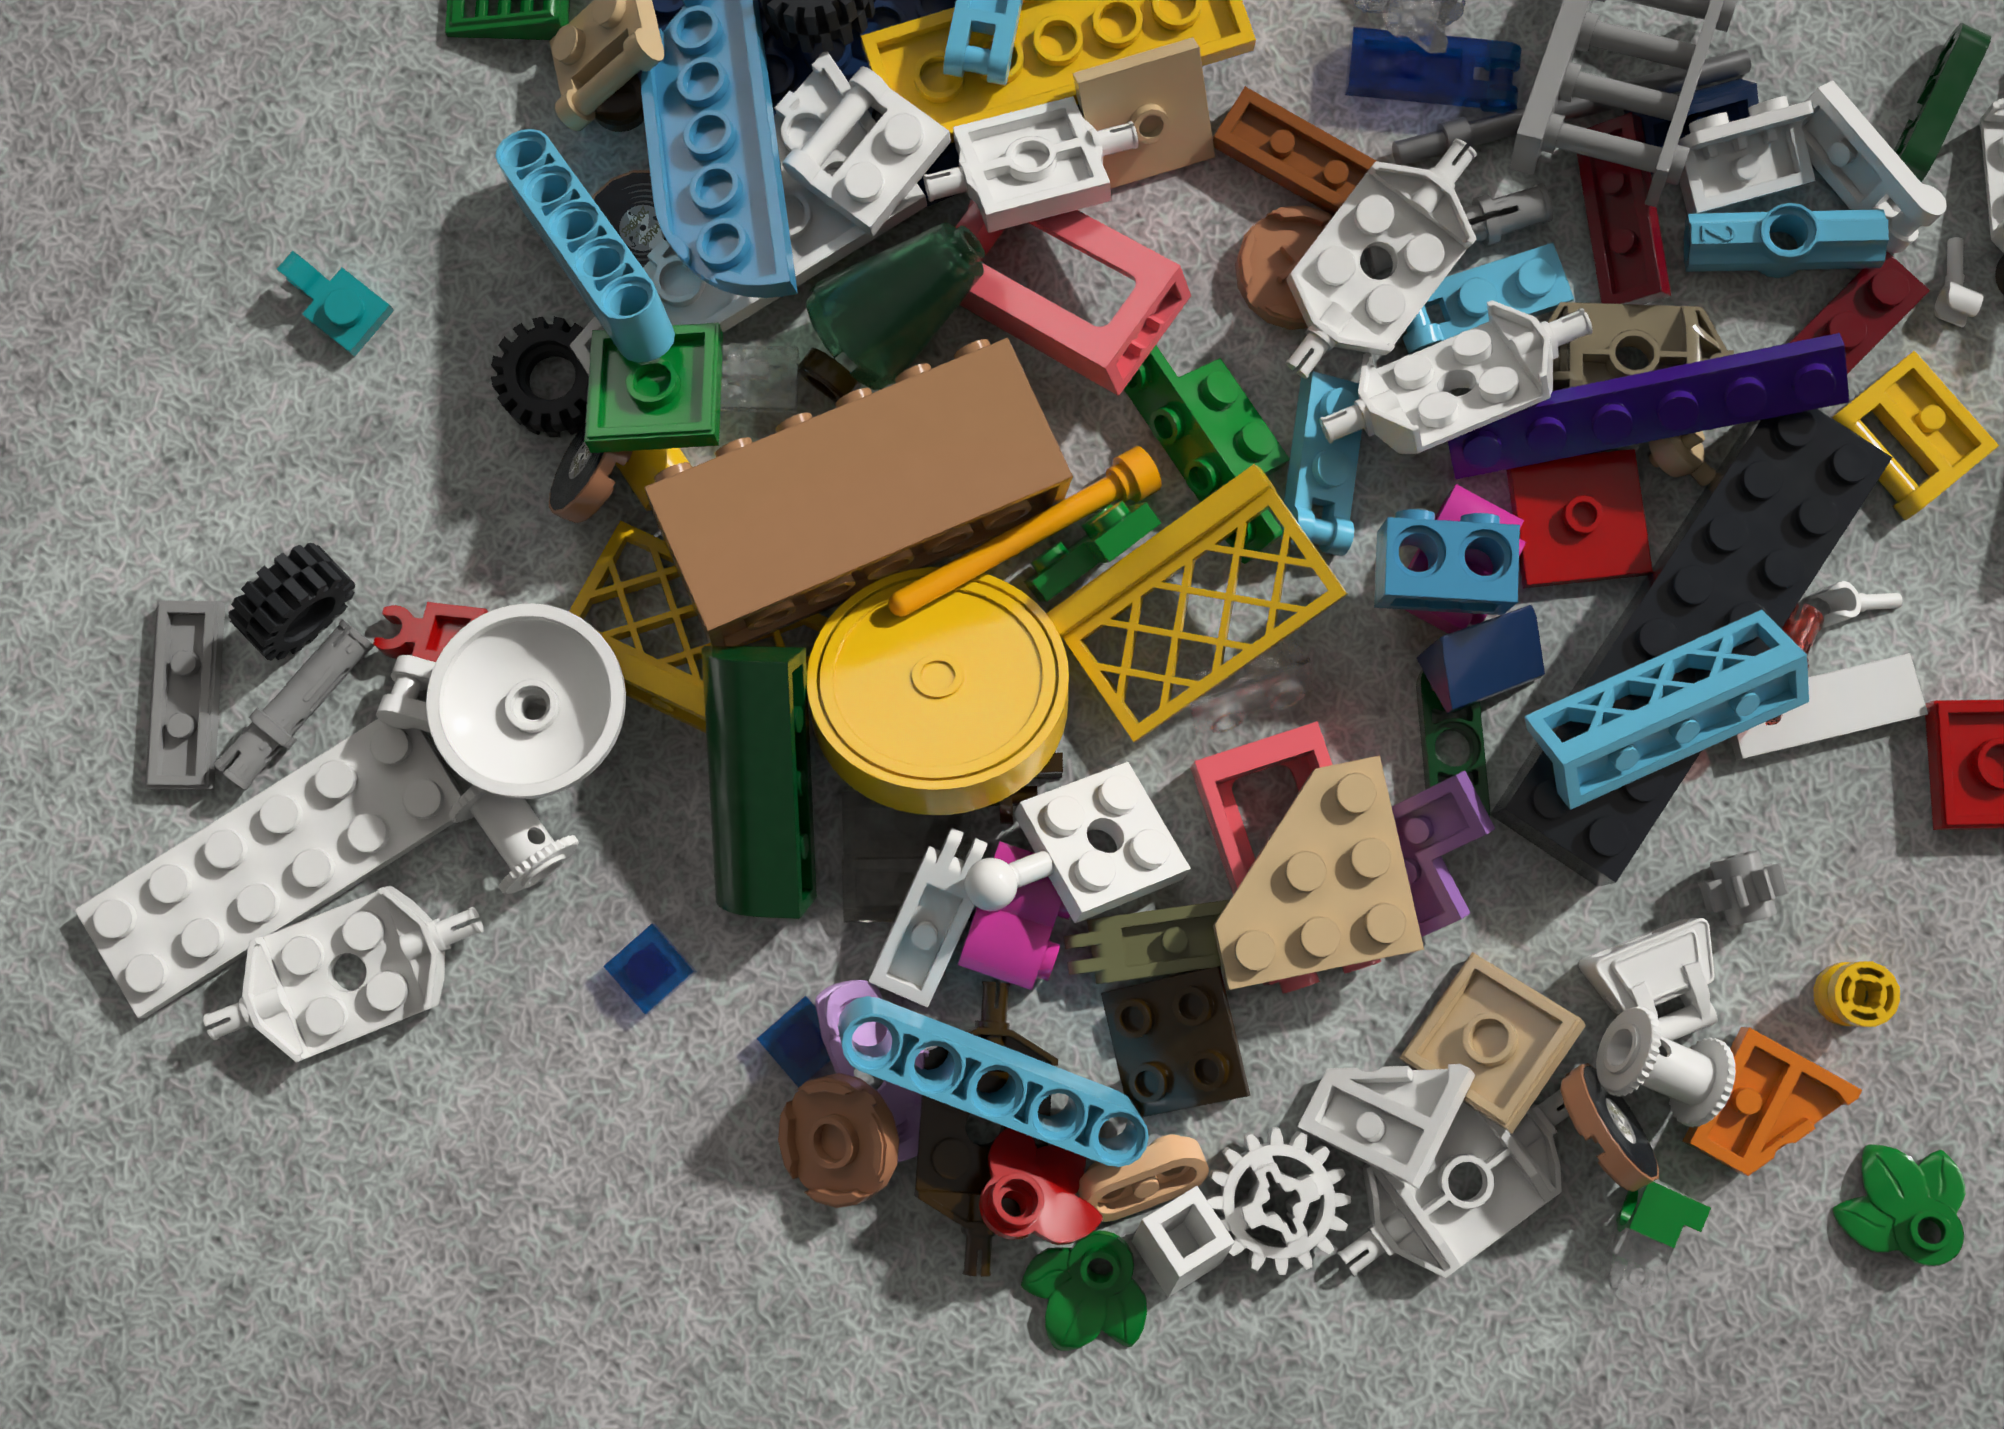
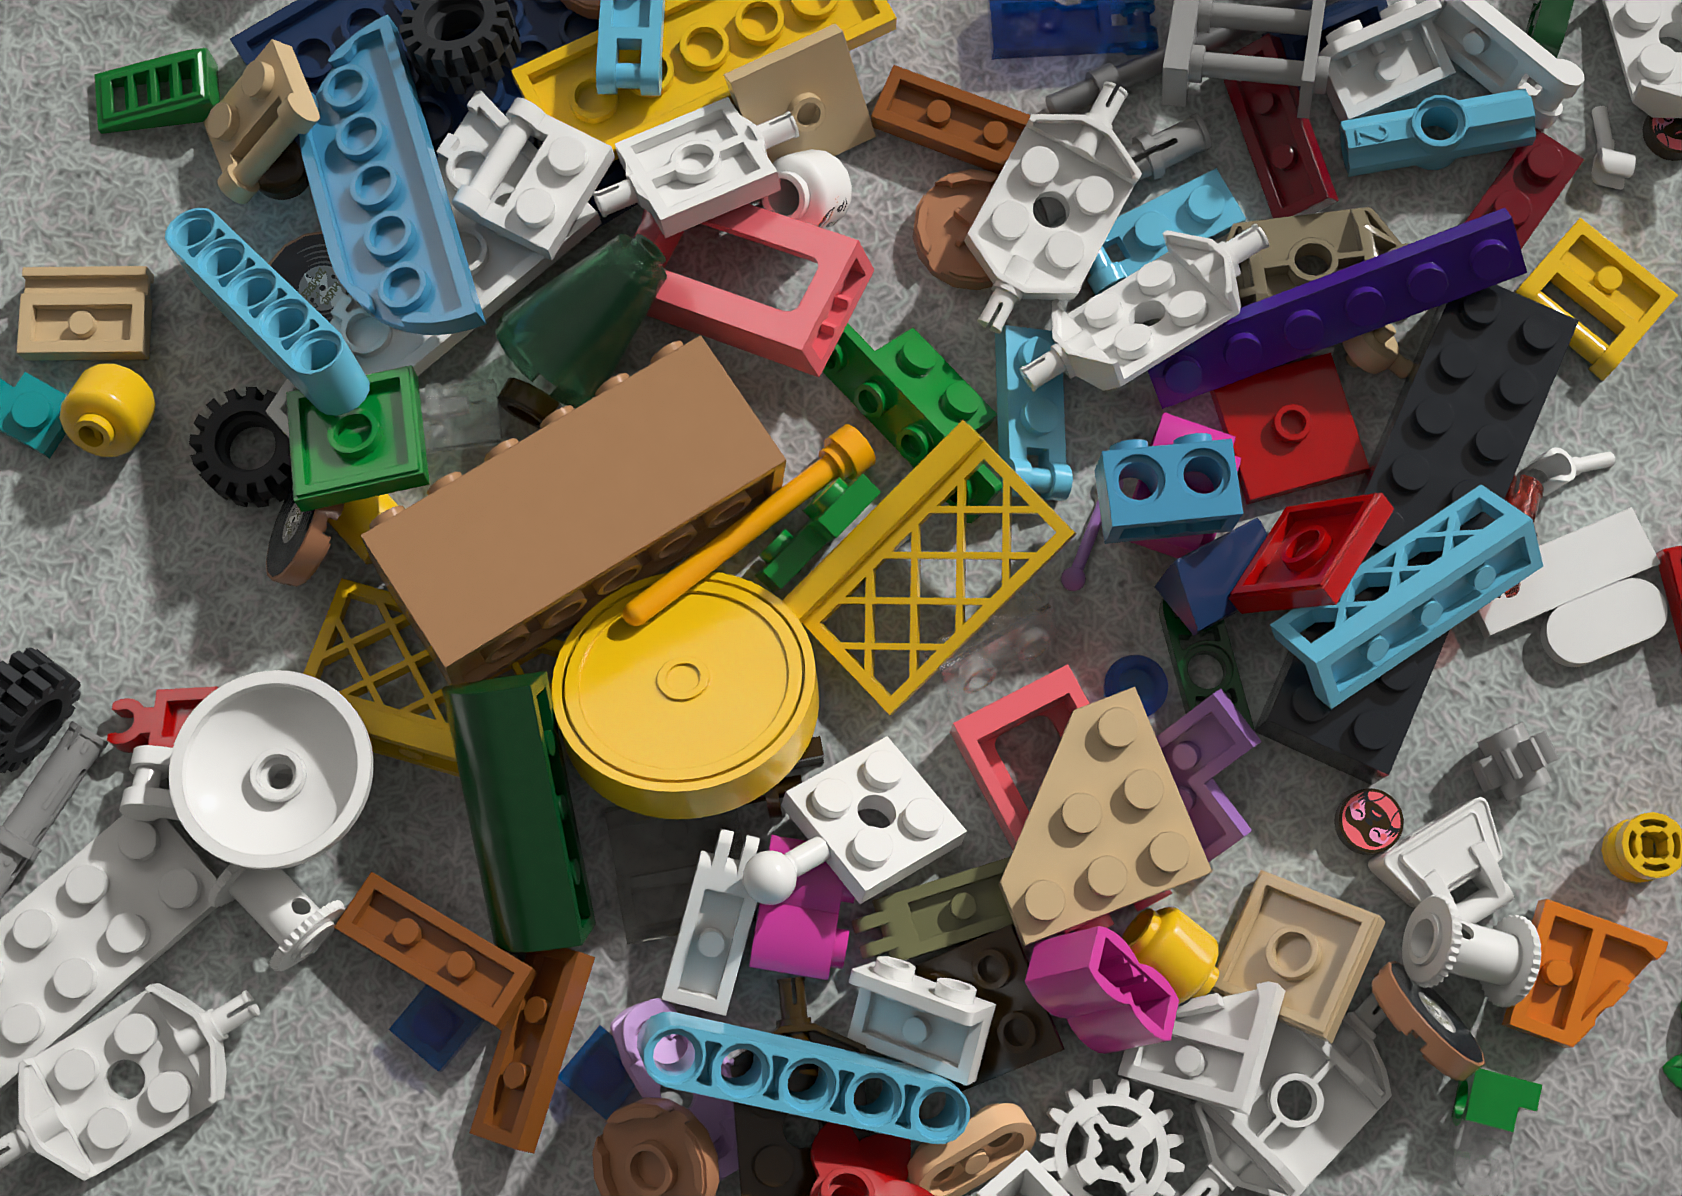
camera: 15 degrees left, 5 degrees down
(408, 217) = (85, 313): none -> tan plate
(417, 318) = (107, 410): none -> yellow head
(659, 899) = (436, 951): none -> dark orange plate
(737, 1007) = (532, 1051): none -> dark orange plate
(1115, 1044) = (920, 1020): none -> white bracket
(1143, 202) = (812, 188): none -> white head
(1296, 1045) = (1102, 990): none -> dark pink brick
(1337, 634) = (1074, 577): none -> medium lavender hinge
(1368, 1021) = (1176, 949): none -> yellow head
(1385, 740) = (1142, 674): none -> clear blue plate
(1579, 651) = (1311, 554): none -> red plate
(1587, 922) = (1369, 821): none -> tile
(1859, 763) = (1603, 622): none -> white tile

